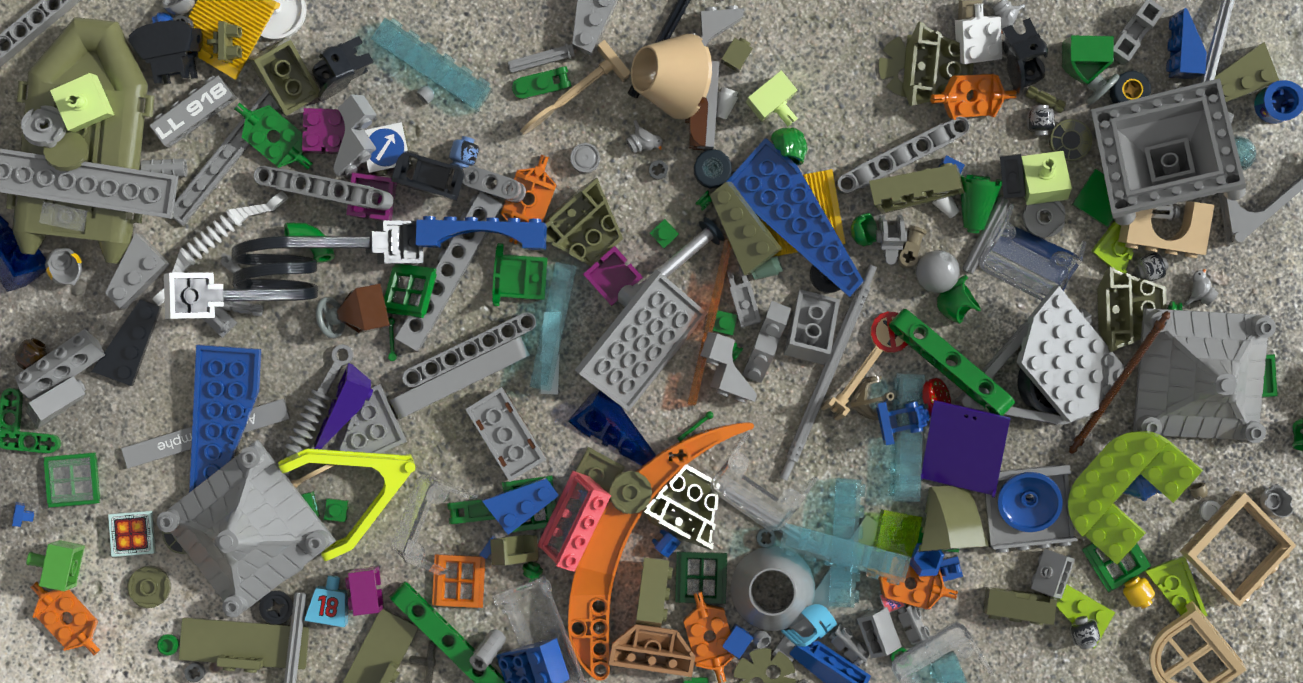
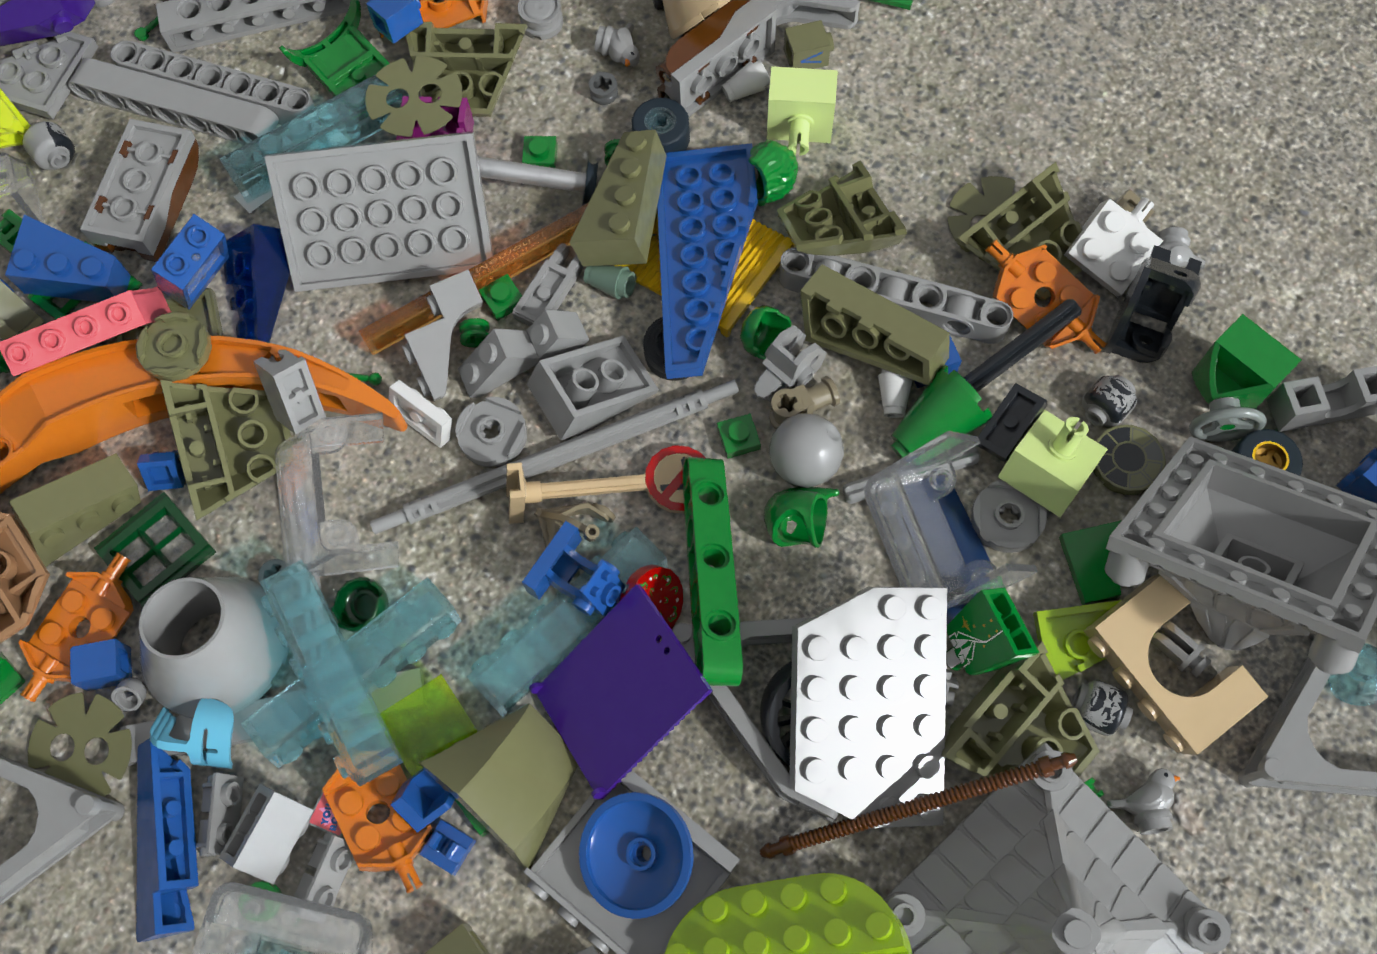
camera: 50 degrees right, 20 degrees down
(429, 456) = (48, 145): none -> light grey head
(592, 455) = (191, 256): none -> blue window
(606, 272) = (429, 115): none -> olive piece
(703, 463) = (290, 390): none -> light grey hinge
(759, 410) = (421, 414): none -> white plate
(784, 400) = (485, 414): none -> light grey plate
(817, 515) = (359, 603): none -> dark green hair
(846, 141) = (842, 218): none -> olive wedge
(896, 287) = (738, 436): none -> green plate
(982, 130) = (1023, 344): none -> black axle
(1045, 99) = (1126, 366): olive axle -> none
(1088, 285) = (988, 634): none -> green torso

